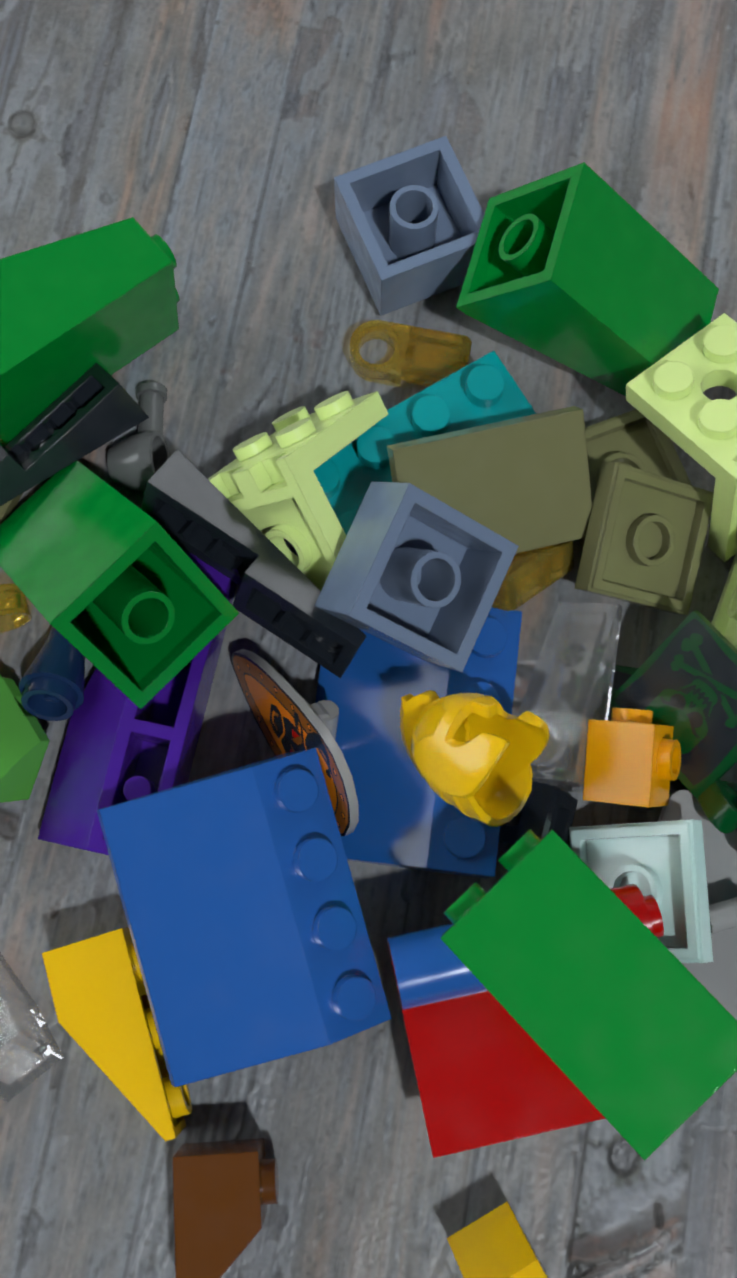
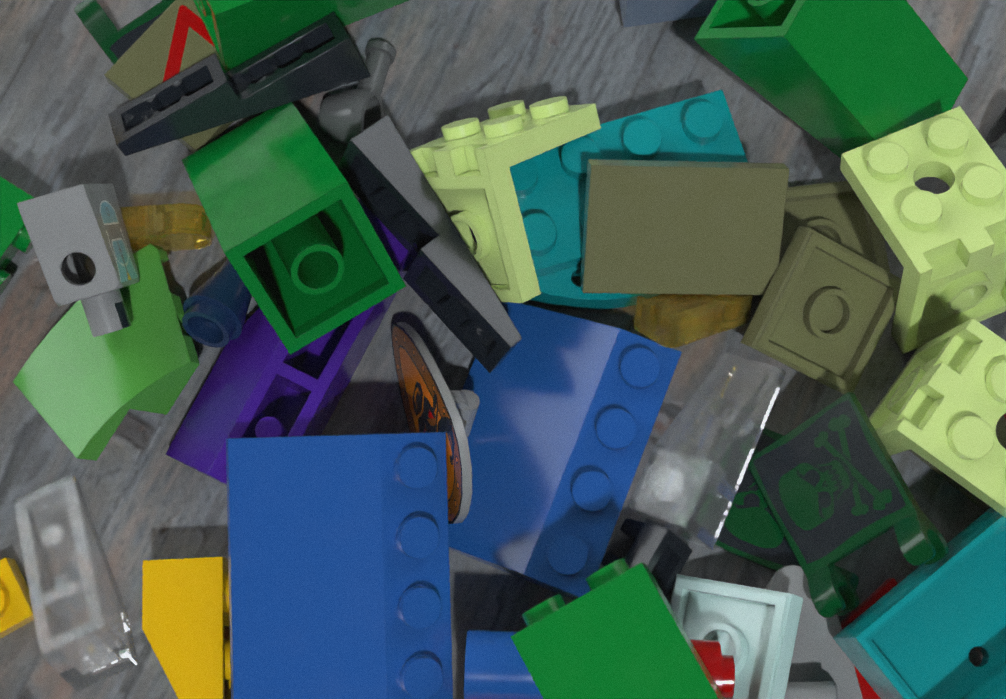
camera: 20 degrees right, 0 degrees up
(417, 574) = (583, 290): sand blue brick -> none
(418, 357) = (651, 74): clear yellow piece -> none
(473, 751) = (594, 474): yellow helmet -> none
(630, 760) = (749, 522): light orange brick -> none

